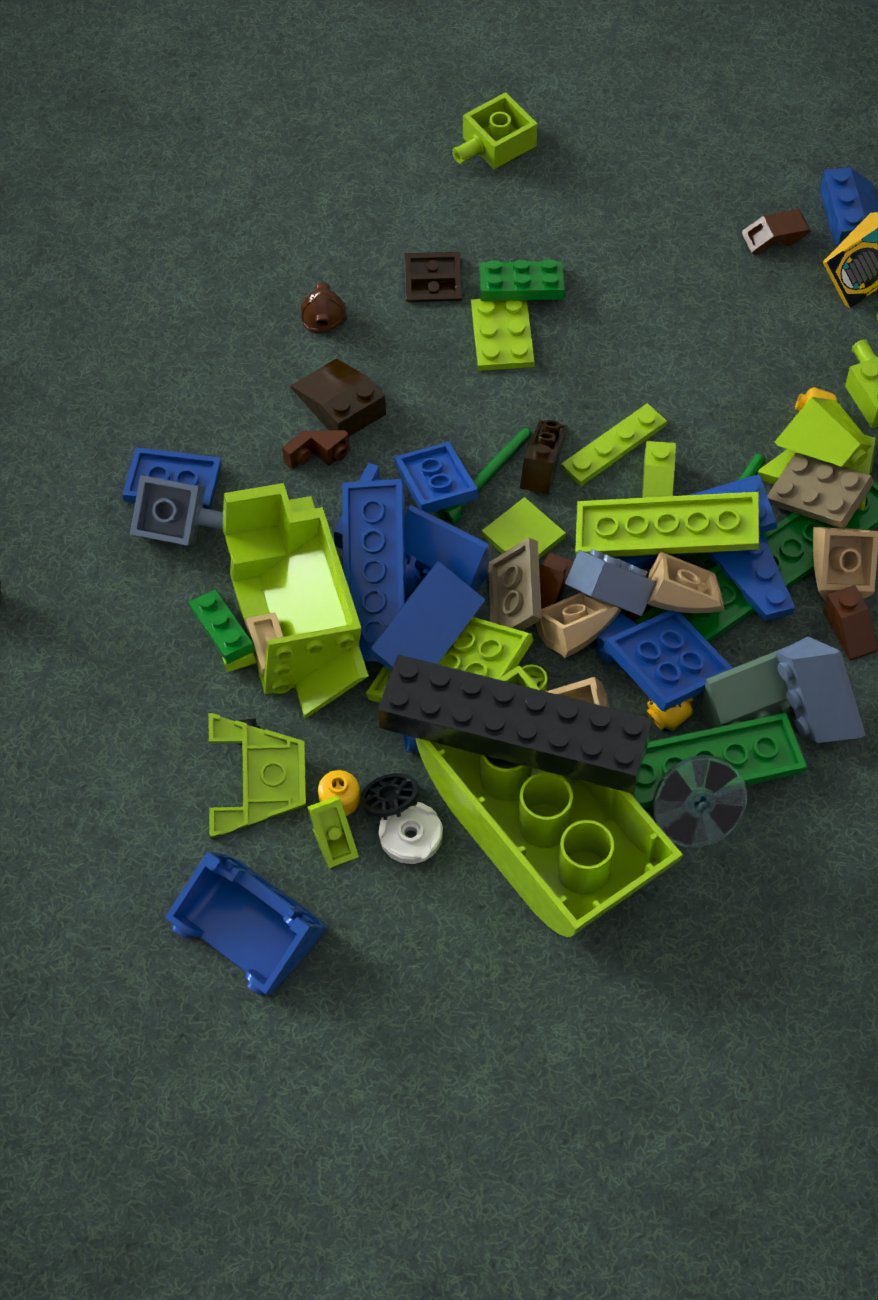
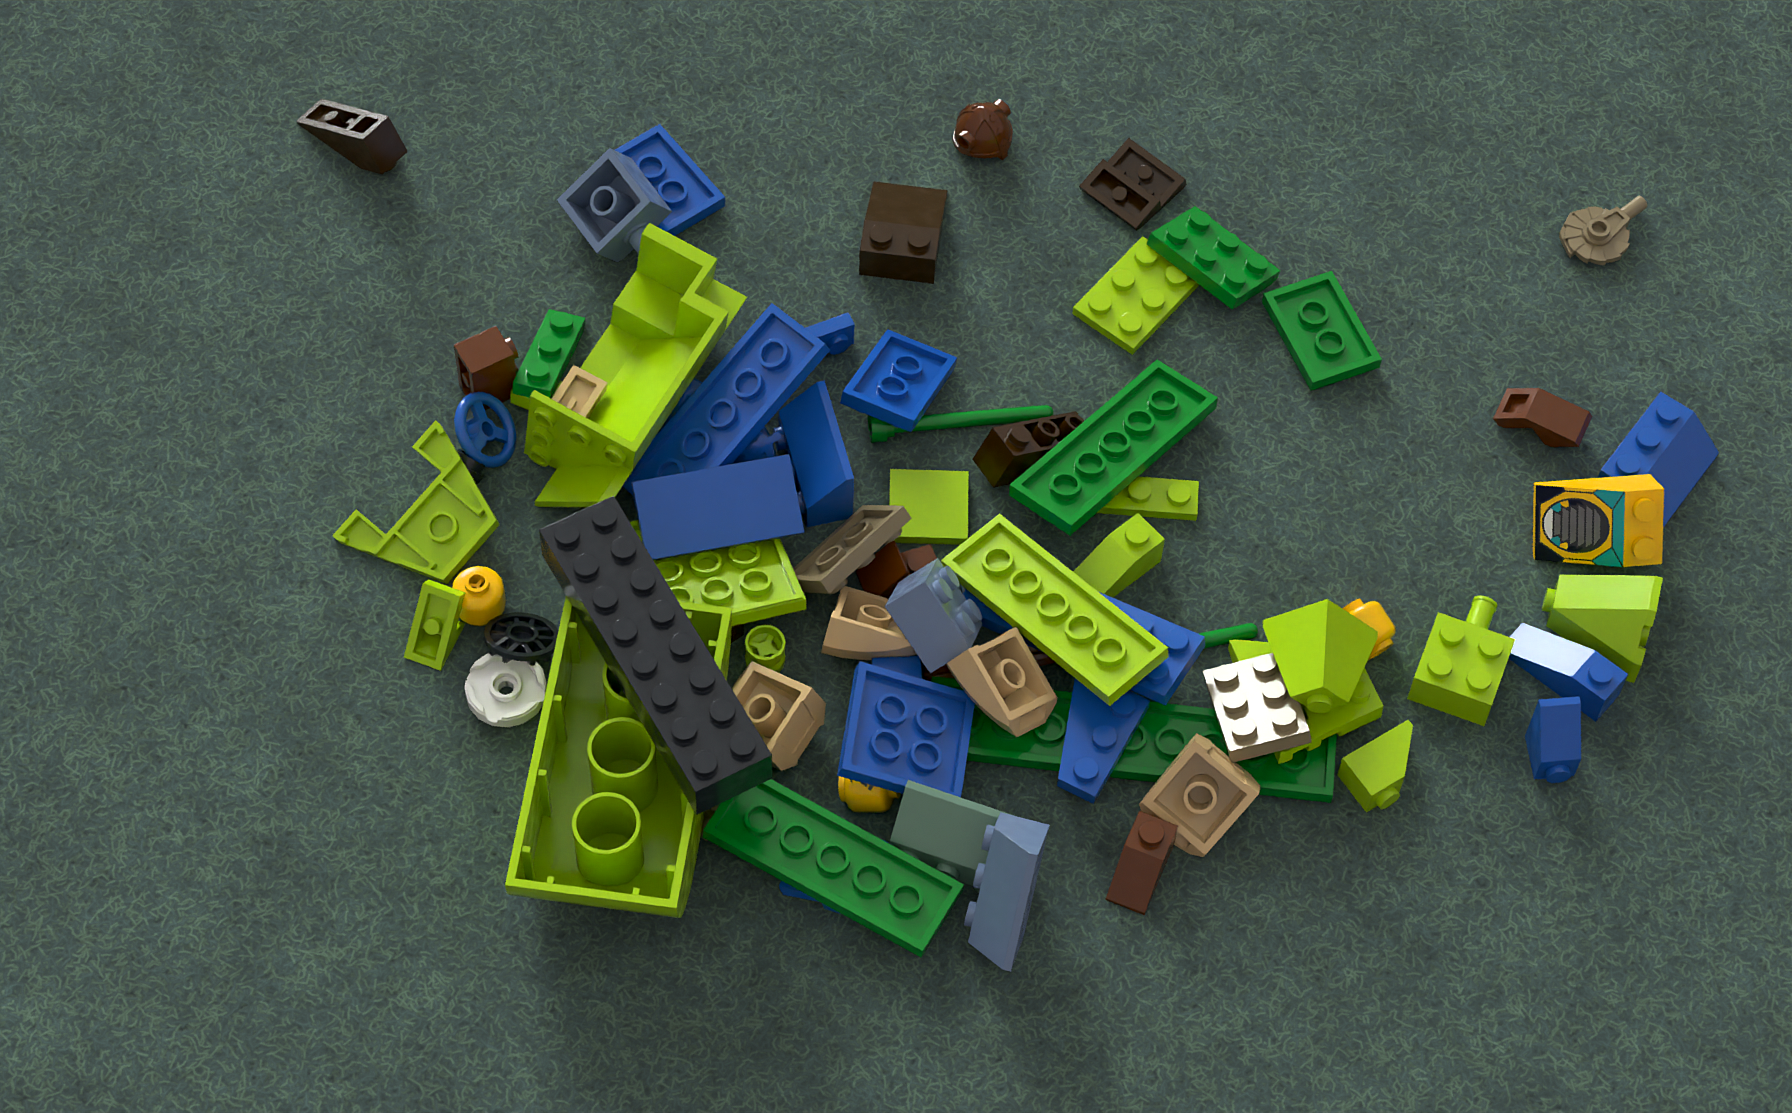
camera: 40 degrees right, 0 degrees up
(199, 662) = (487, 364): none -> reddish brown brick
(229, 702) = (480, 430): none -> blue piece
(245, 920) = (281, 633): blue windscreen -> none
(324, 444) = (840, 268): reddish brown slope -> none
(497, 132) = (1361, 86): lime brick -> none
(590, 420) = (1113, 447): none -> green plate
(618, 275) = (1321, 330): none -> green plate
(685, 784) = (812, 894): clear light blue piece -> none
(694, 118) = (1599, 233): none -> dark tan piece

